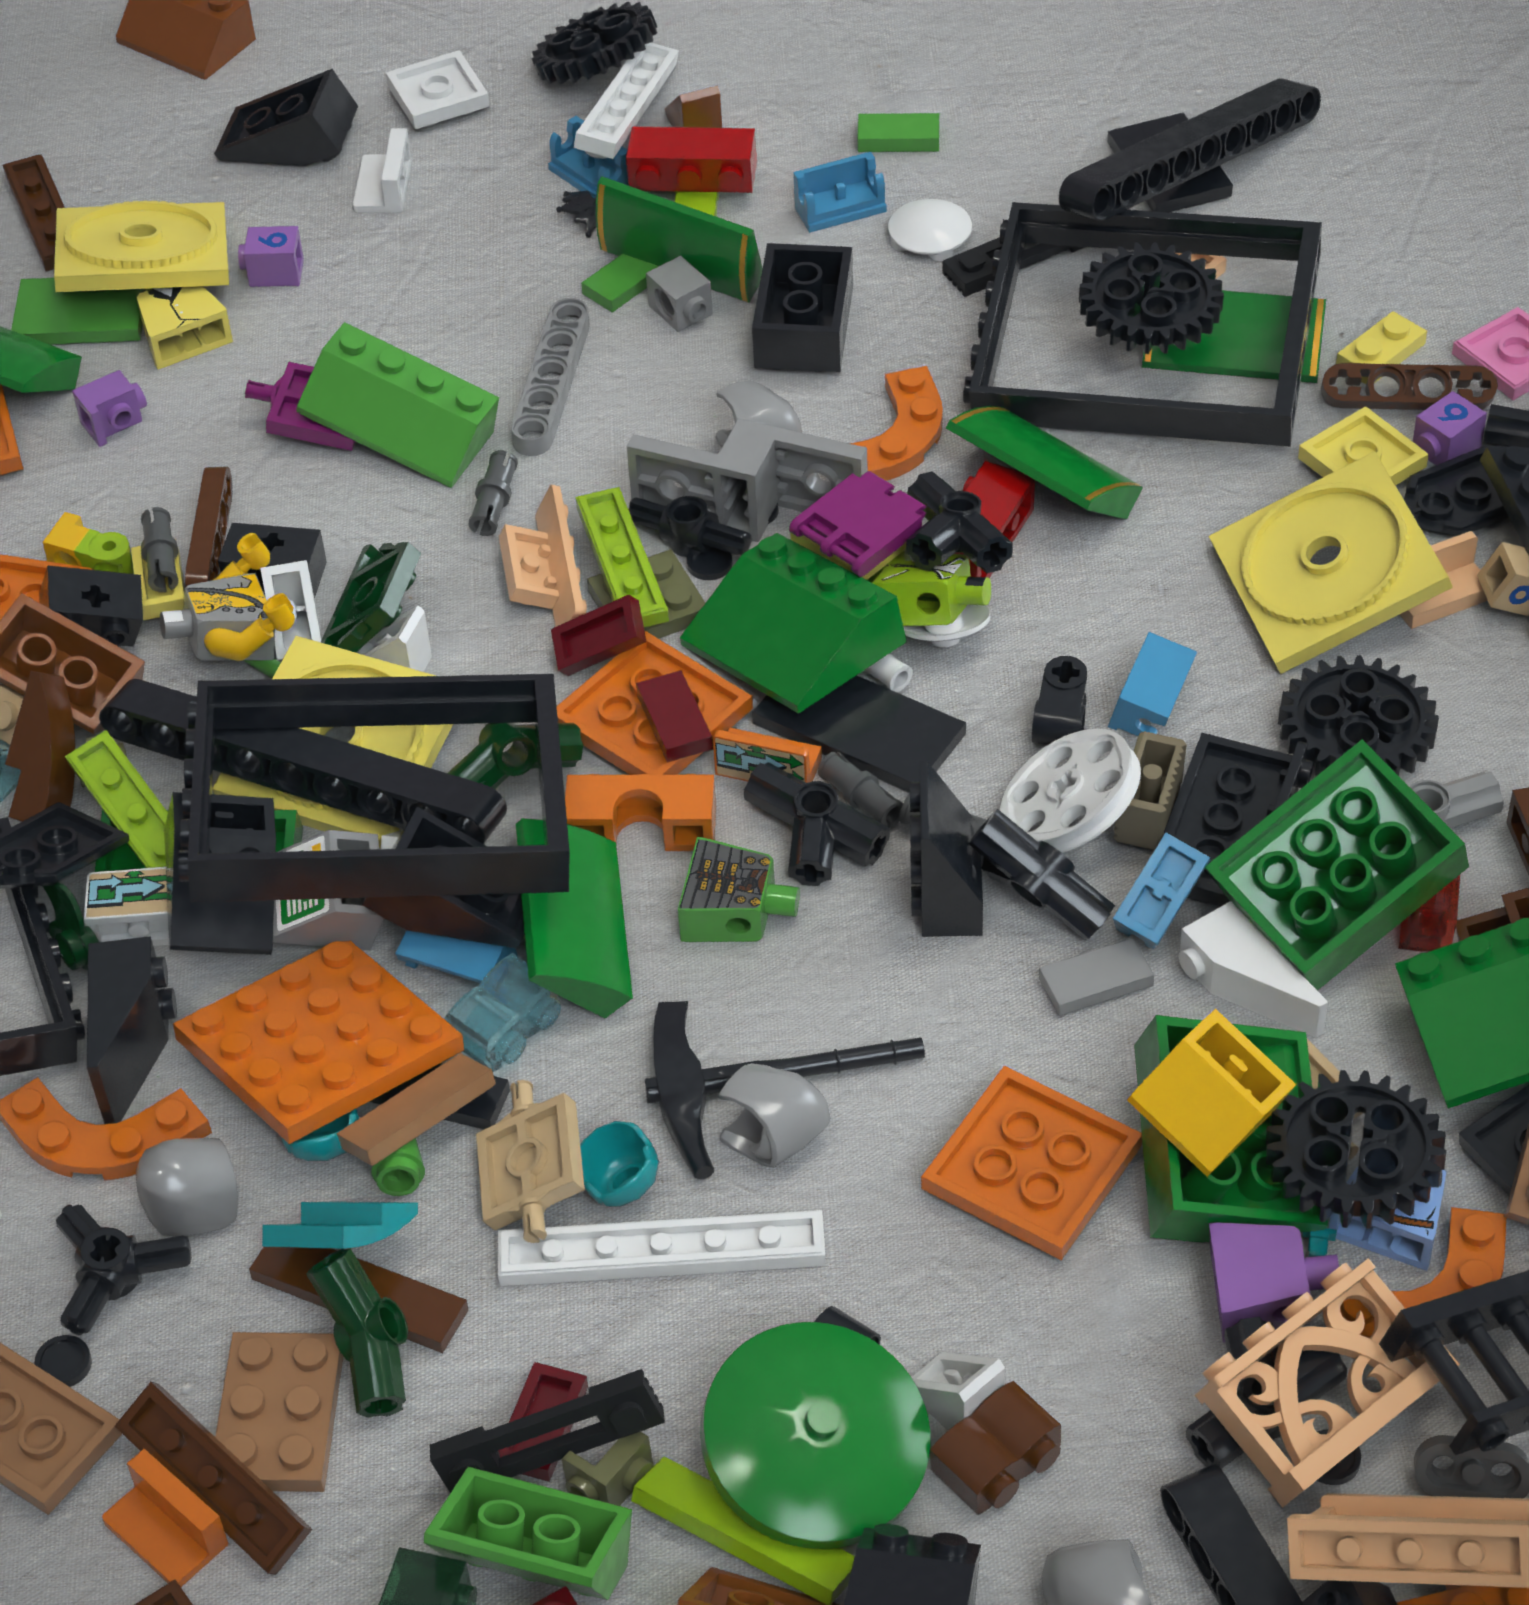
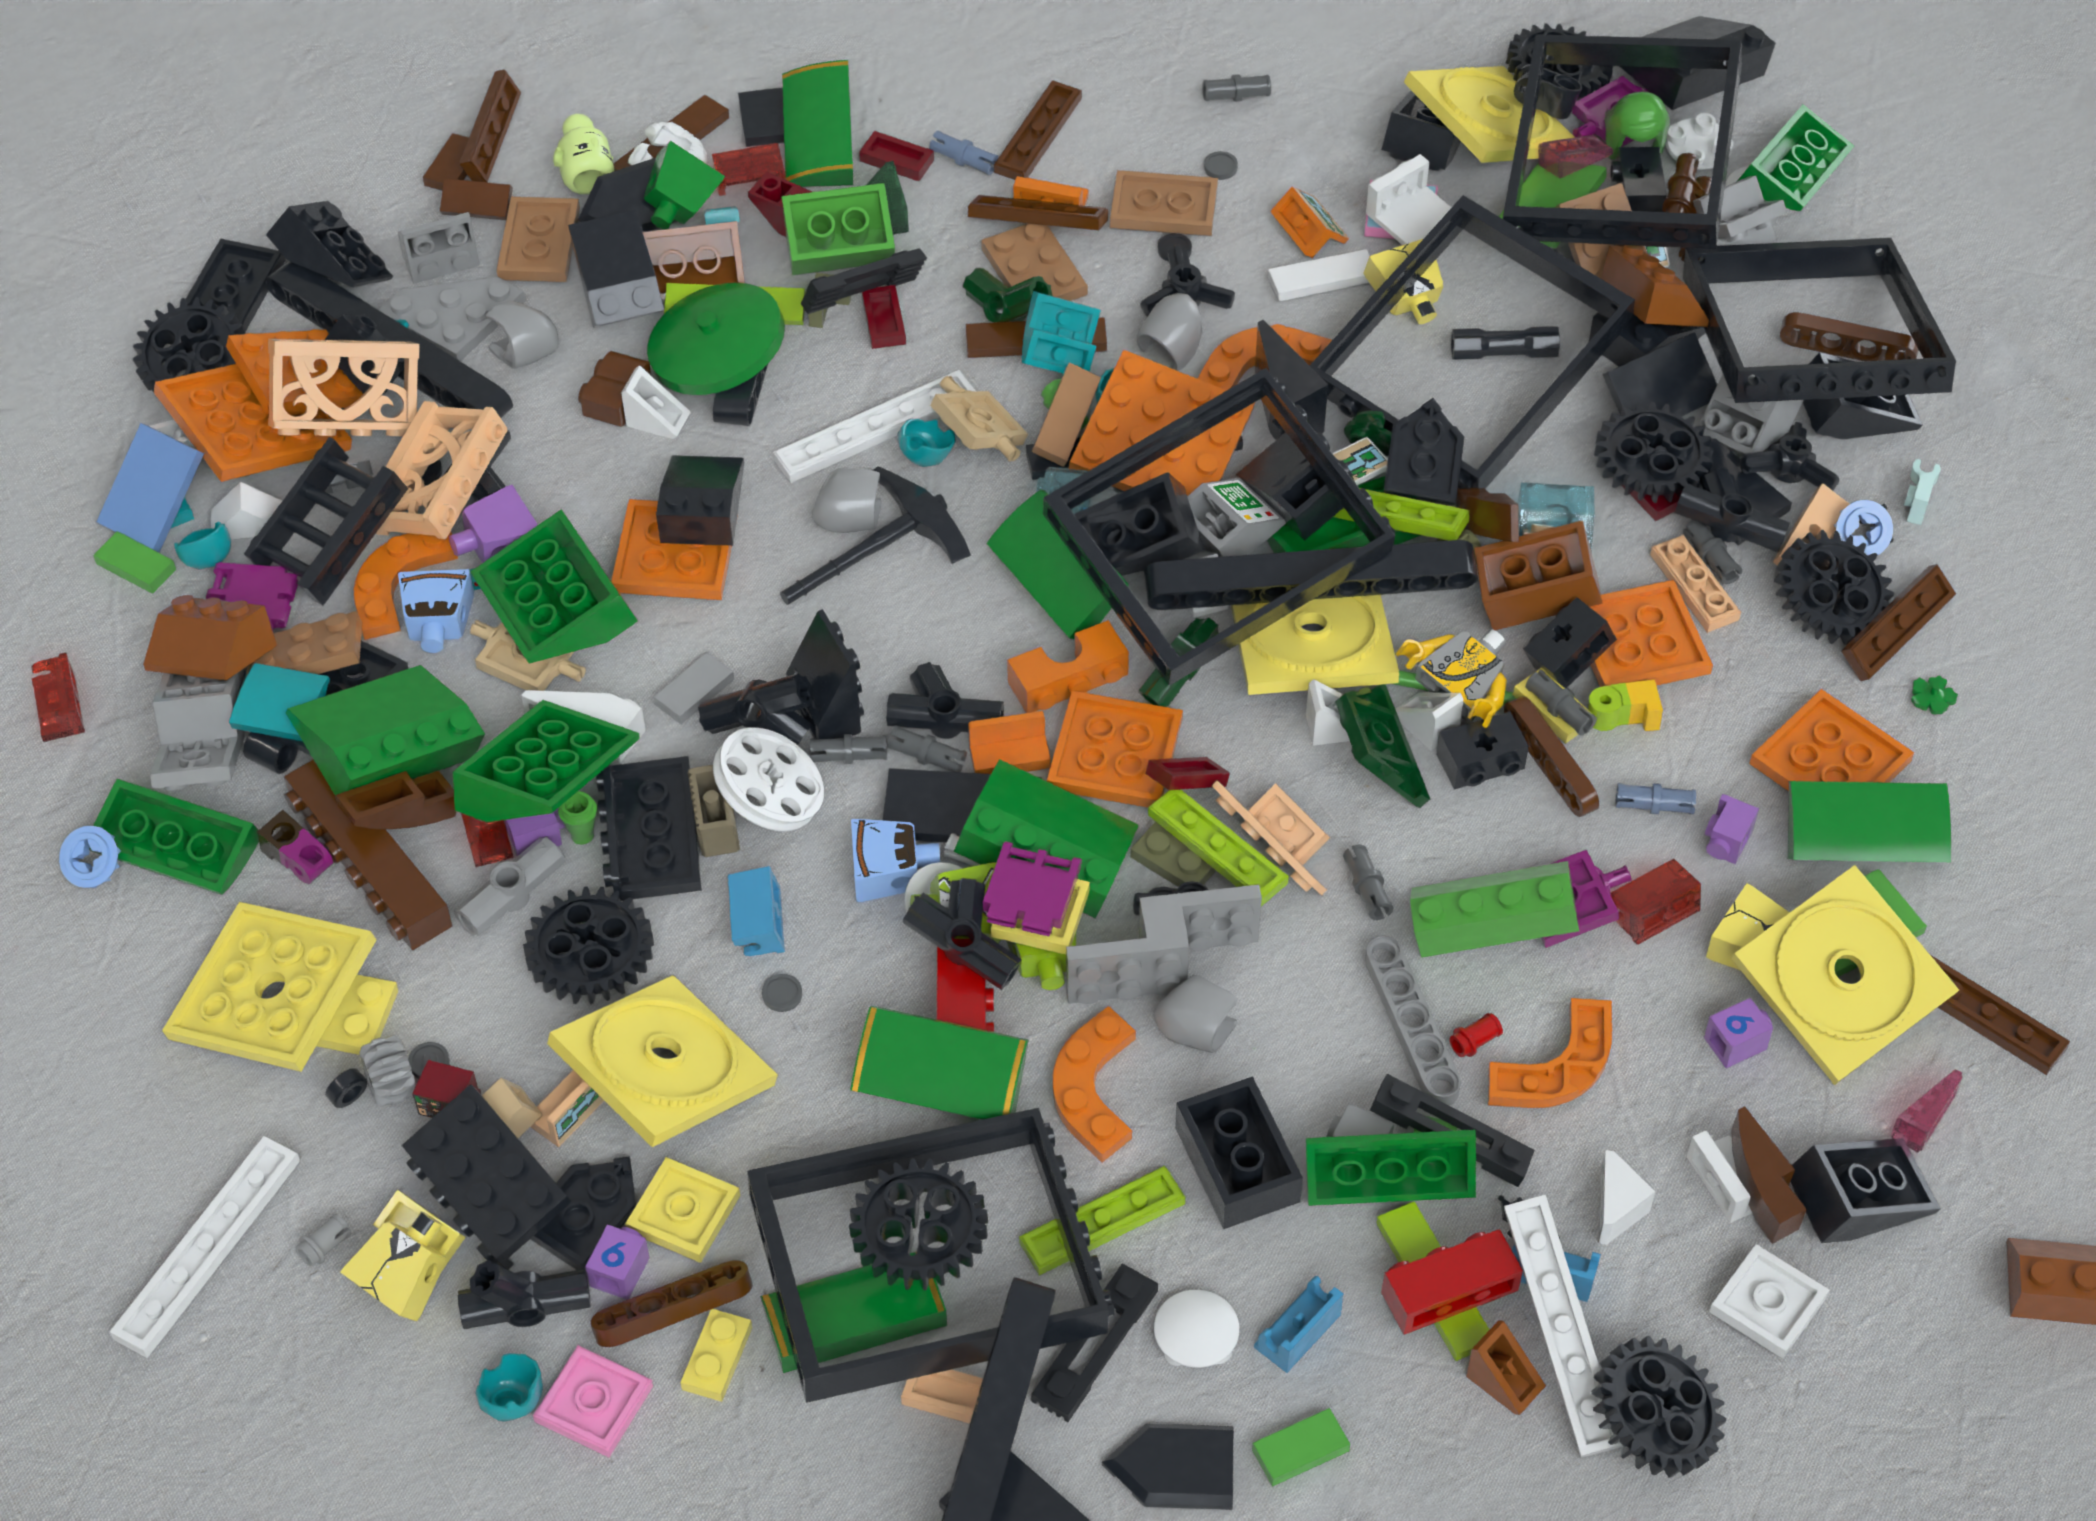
camera: 150 degrees right, 5 degrees up
(126, 456) = (1655, 798): none -> sand blue pin
(190, 162) = (1924, 1115): none -> clear pink slope
(232, 368) = (1657, 900): none -> clear red hinge
(362, 149) = (1766, 1178): none -> reddish brown slope
(469, 281) = (1564, 1076): none -> orange plate
(498, 181) = (1623, 1197): none -> white slope
(508, 339) = (1468, 1039): none -> red pin
(624, 283) = (1399, 1103): none -> black container
(674, 716) = (1088, 732): dark red tile -> none
(731, 894) = (967, 636): torso -> none
(952, 330) = (1107, 1217): none -> lime tile
(966, 1182) = (700, 500): none -> black slope
(978, 685) = (887, 857): none -> light blue torso
(1007, 154) = (1177, 1466): none -> black tile
(1061, 700) = (816, 870): black piece -> none
(1160, 890) = (671, 727): dark azure hinge -> none
(1162, 619) = (782, 992): none -> dark grey piece
(1211, 1092) = (558, 557): yellow slope -> none
(1395, 1141) = (435, 594): black gear -> none

